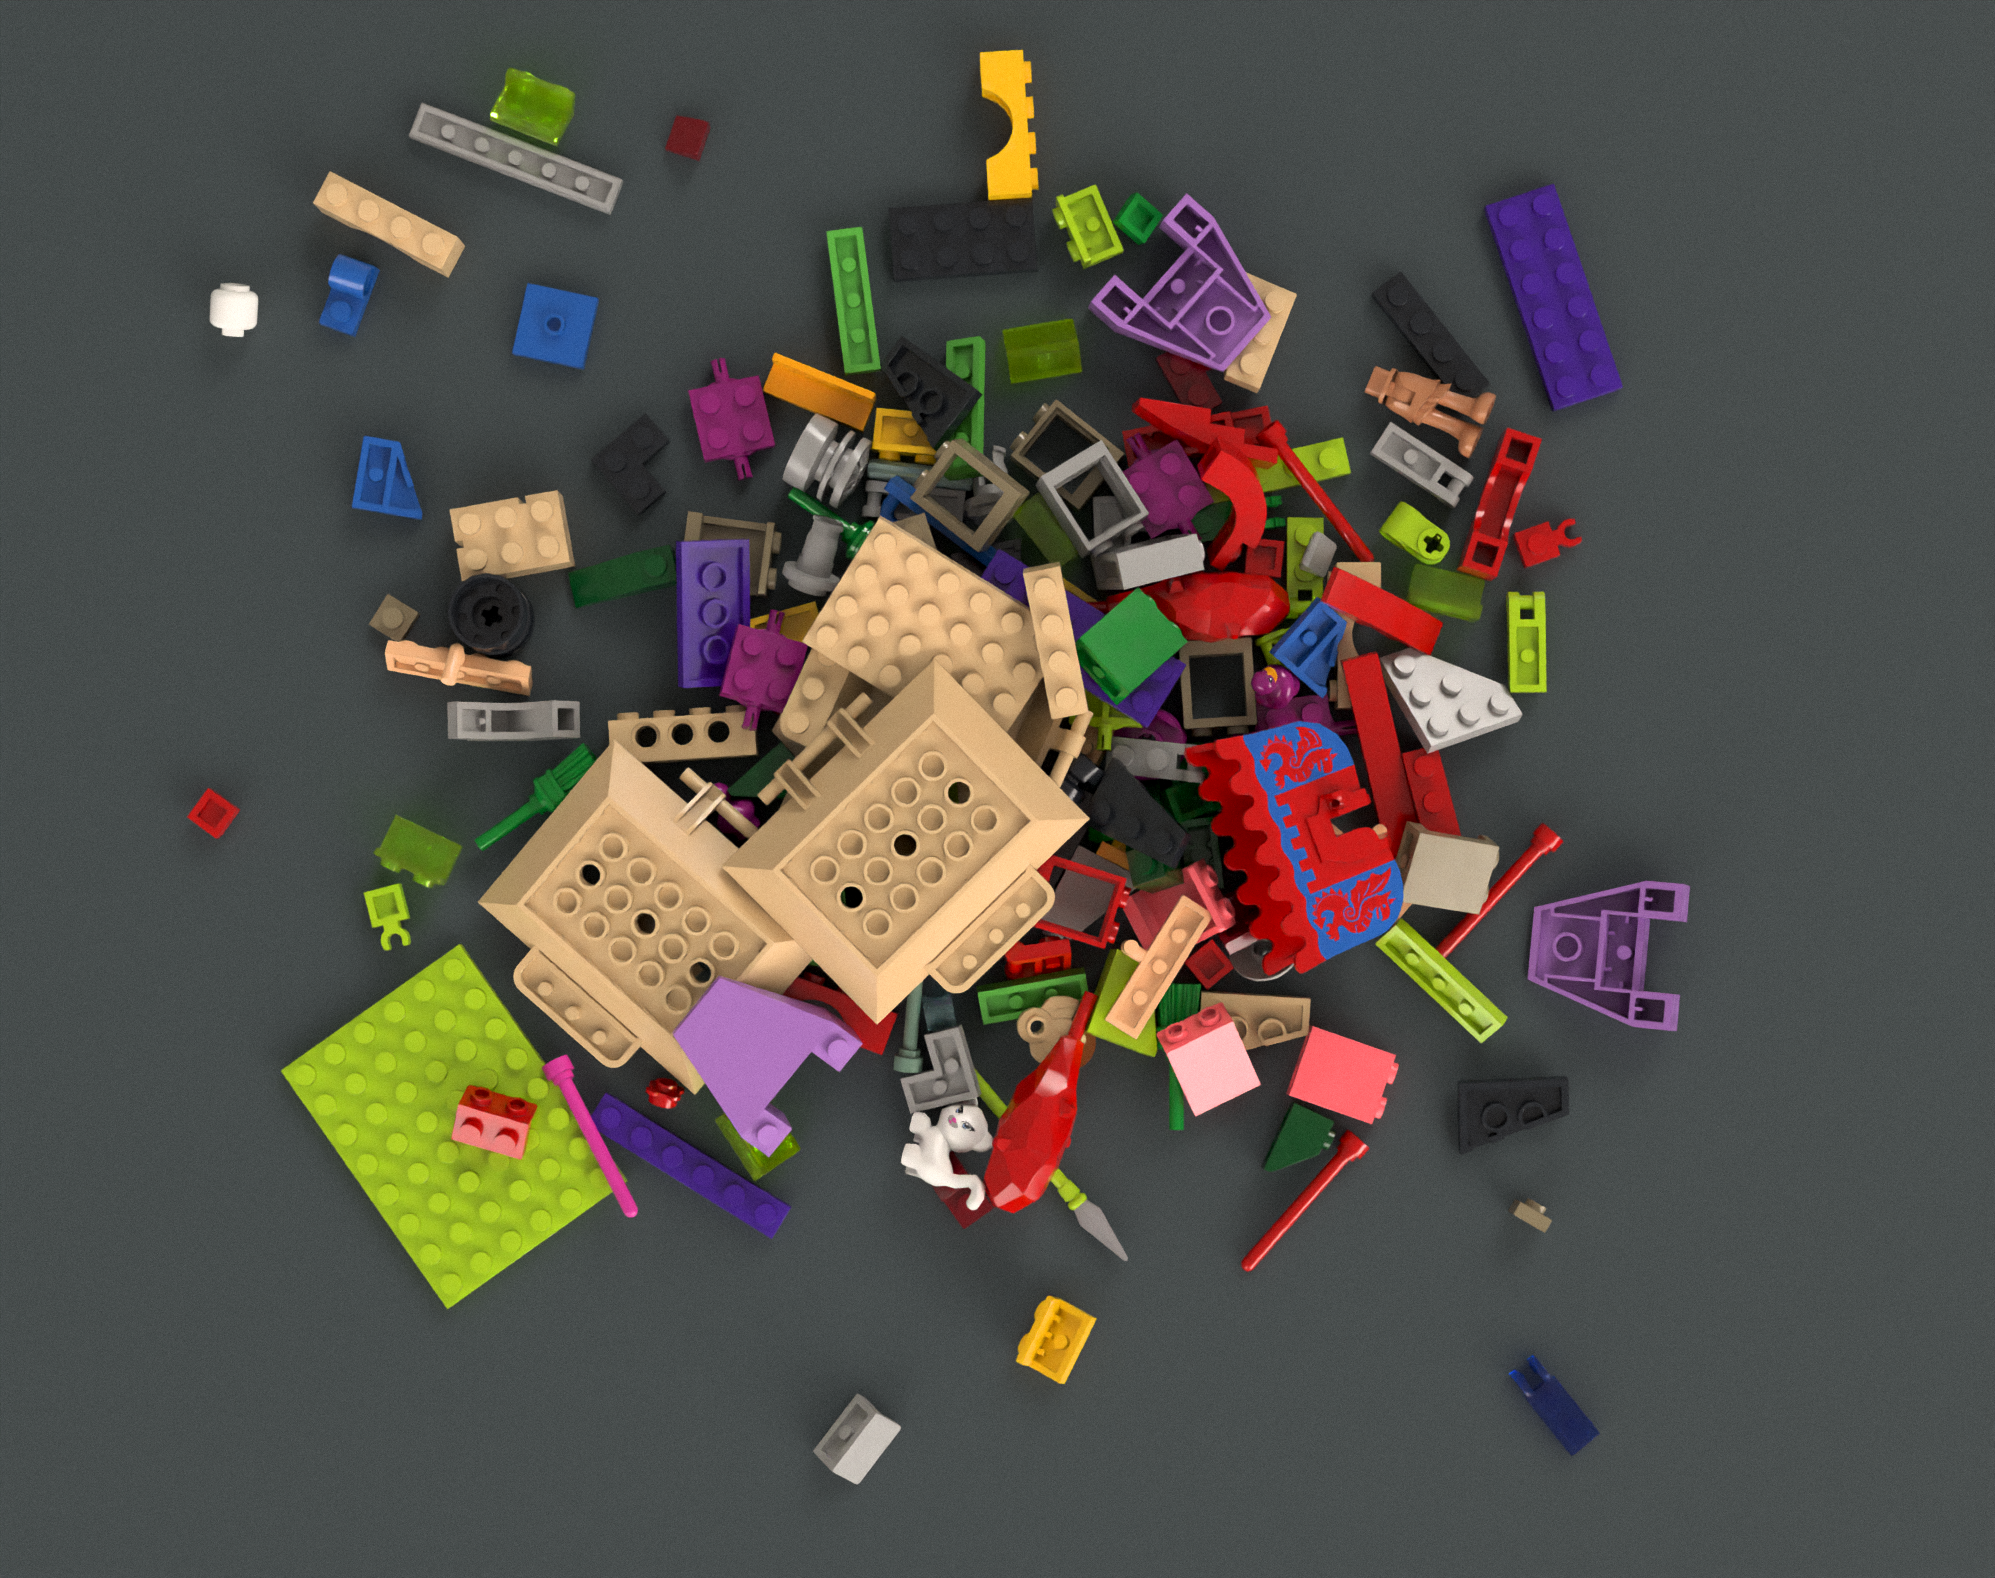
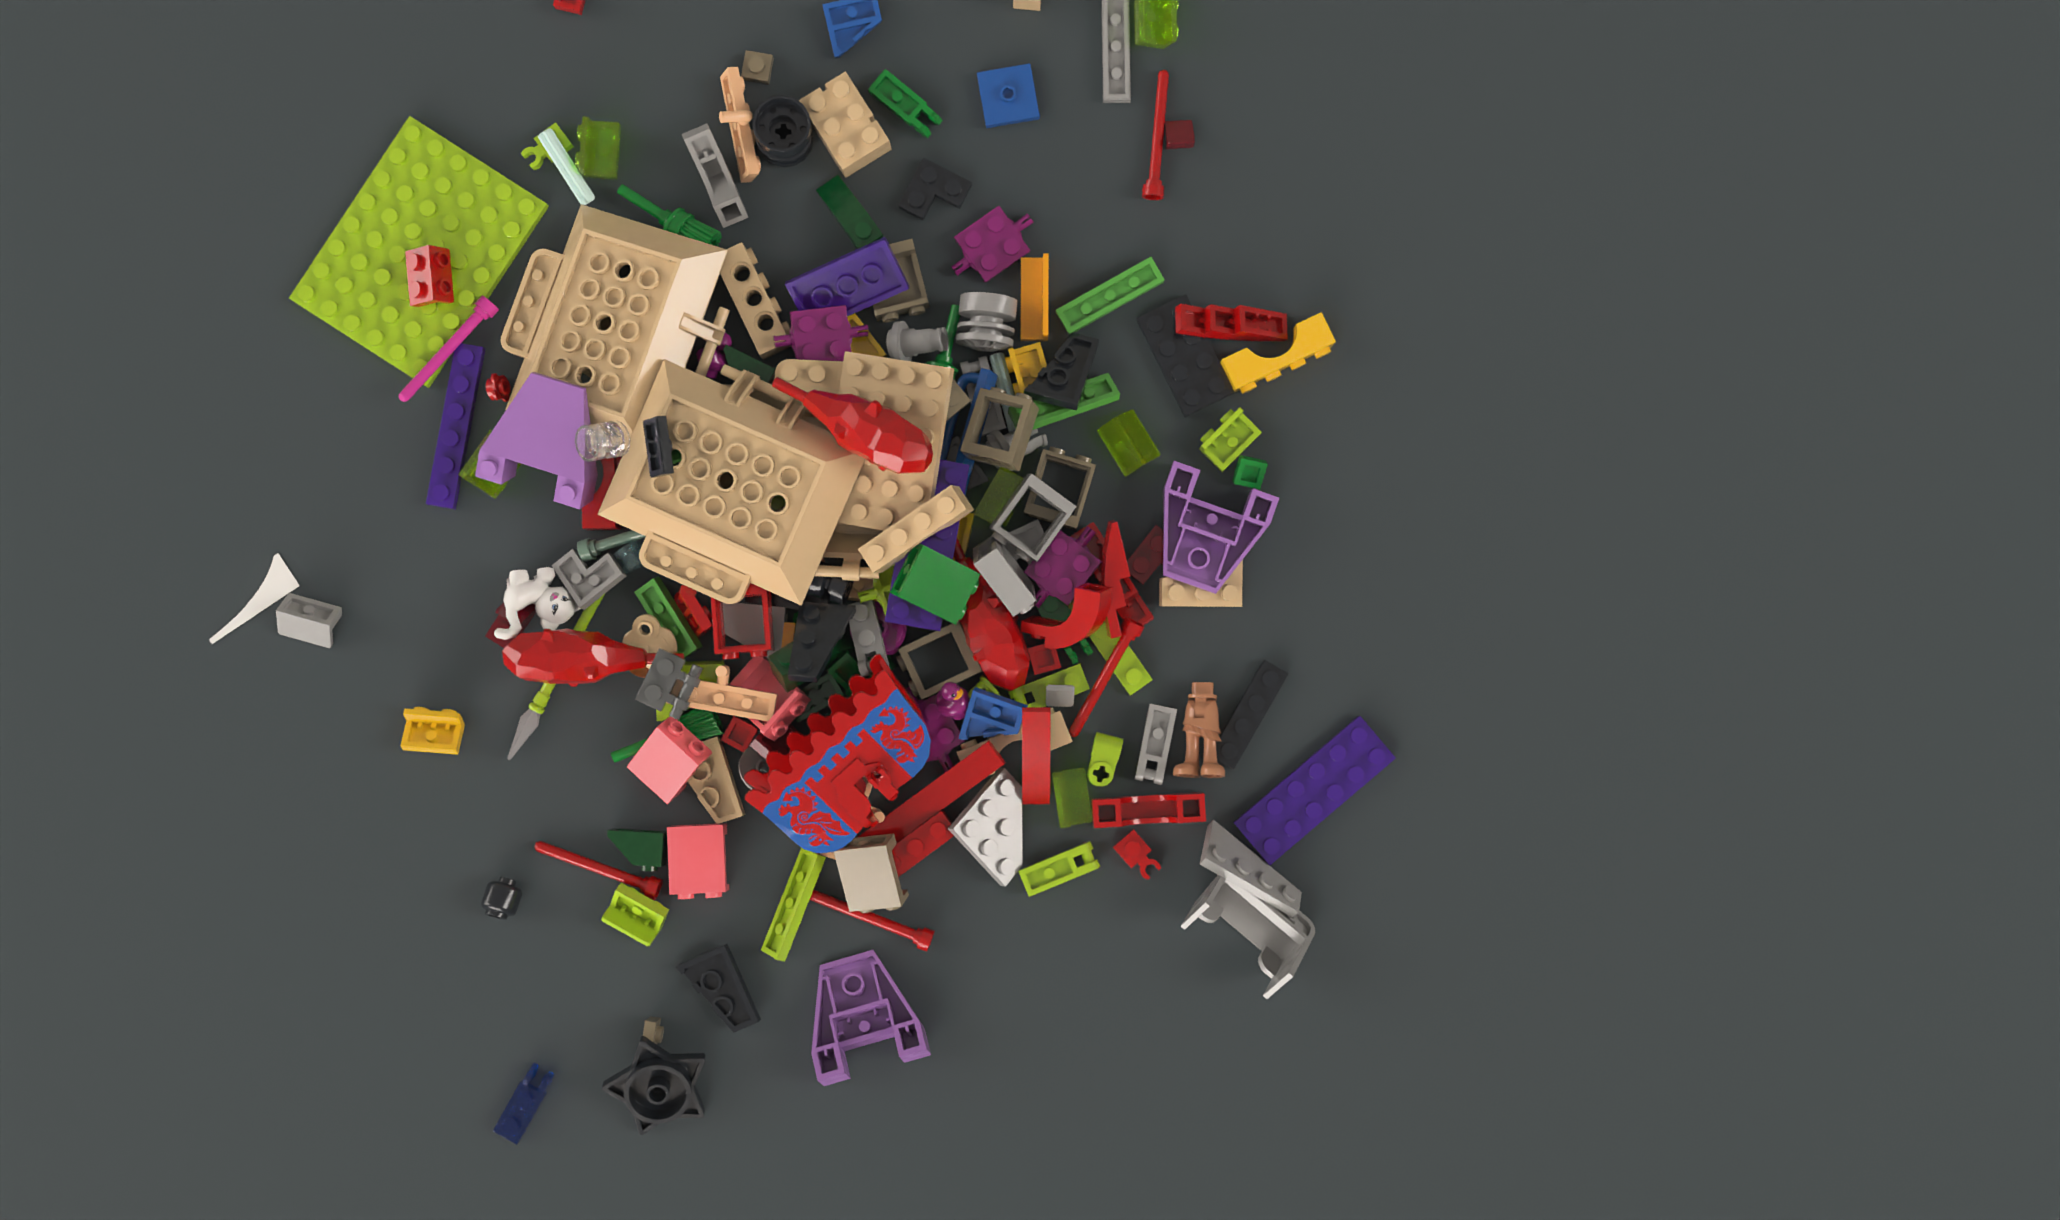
camera: 65 degrees right, 0 degrees up
(425, 900) = (566, 166): none -> light aqua axle
(512, 457) = (903, 102): none -> green hinge
(742, 195) = (1153, 188): none -> red piece
(793, 979) = (602, 440): none -> clear wheel
(797, 1466) = (275, 586): none -> white sticker
(833, 908) = (658, 446): none -> black plate
(913, 648) = (867, 429): none -> red piece
(948, 167) = (1227, 323): none -> red slope
(1110, 1026) = (660, 682): none -> dark grey plate
(1294, 1333) = (501, 898): none -> black head
(1378, 1177) = (635, 914): none -> lime bracket
(1597, 1229) = (658, 1086): none -> black plate
(1615, 418) = (1242, 867): none -> light grey wing
(1682, 421) = (1276, 934): none -> light grey windscreen

